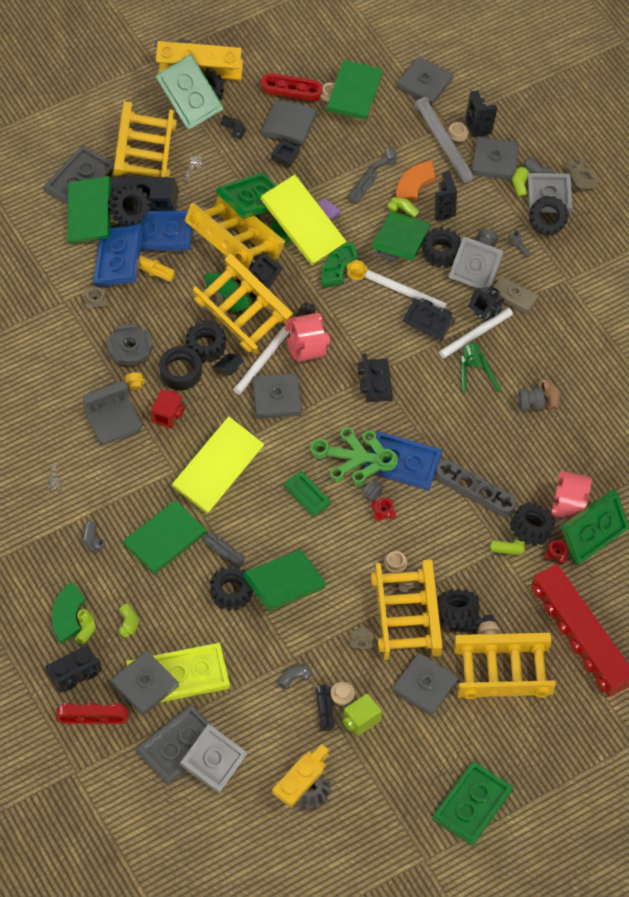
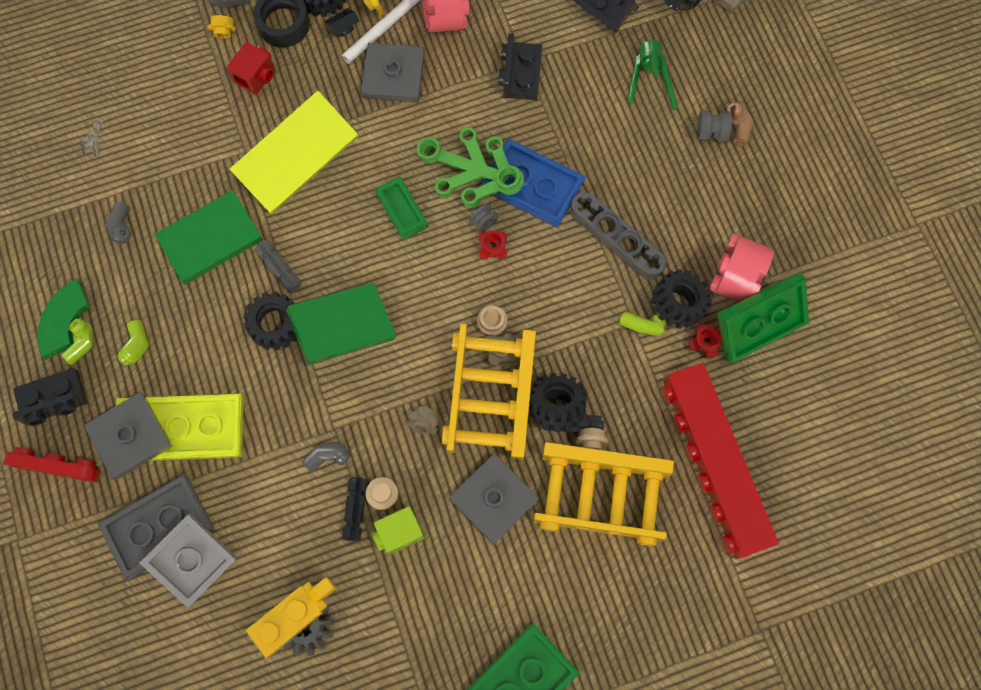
camera: 15 degrees right, 15 degrees up
(111, 413) = (181, 62): dark grey bracket -> none
(475, 333) = (660, 28): white bar -> none

